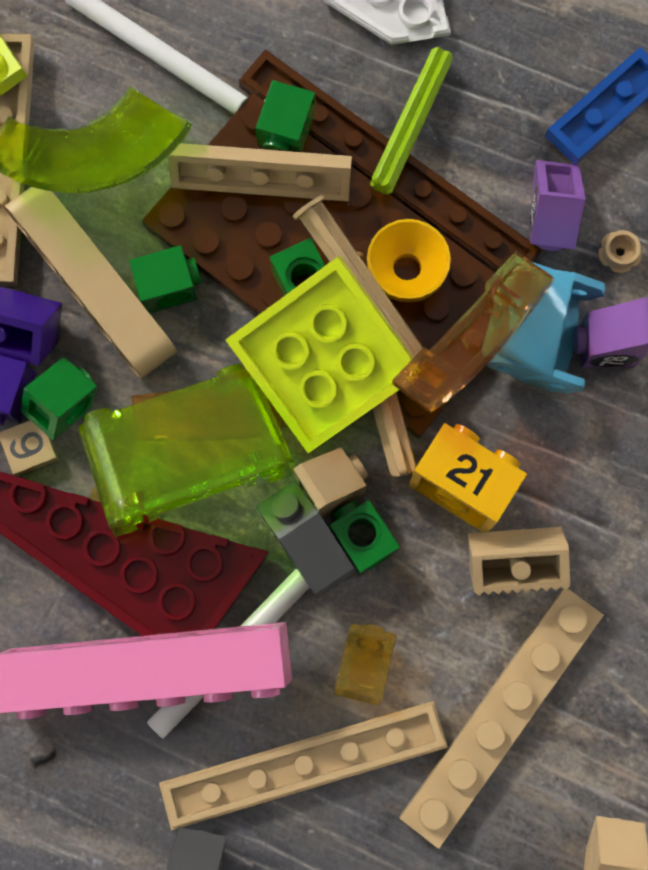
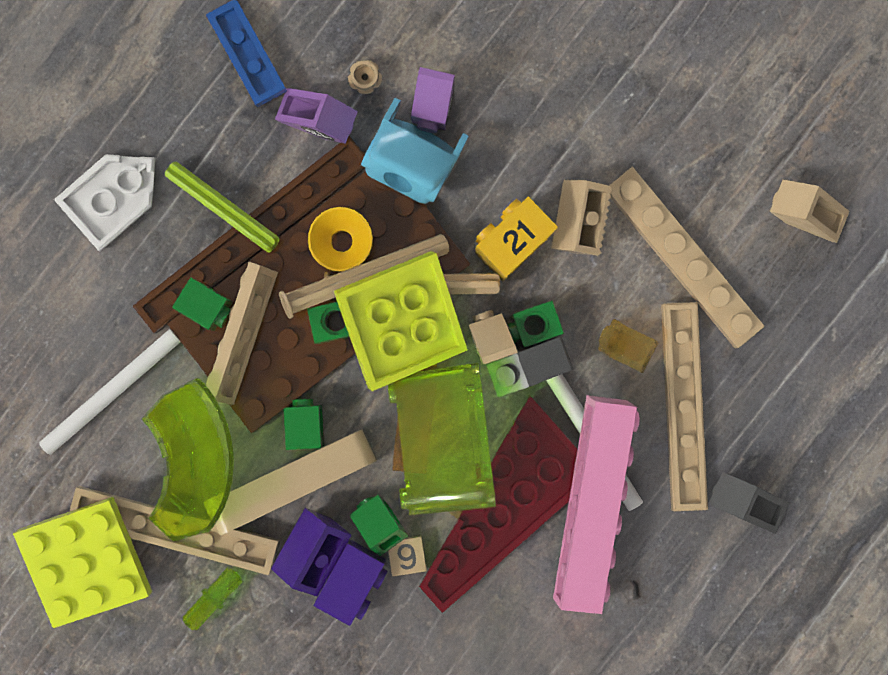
camera: 75 degrees left, 10 degrees up
(477, 336) = (418, 206): clear orange slope -> none

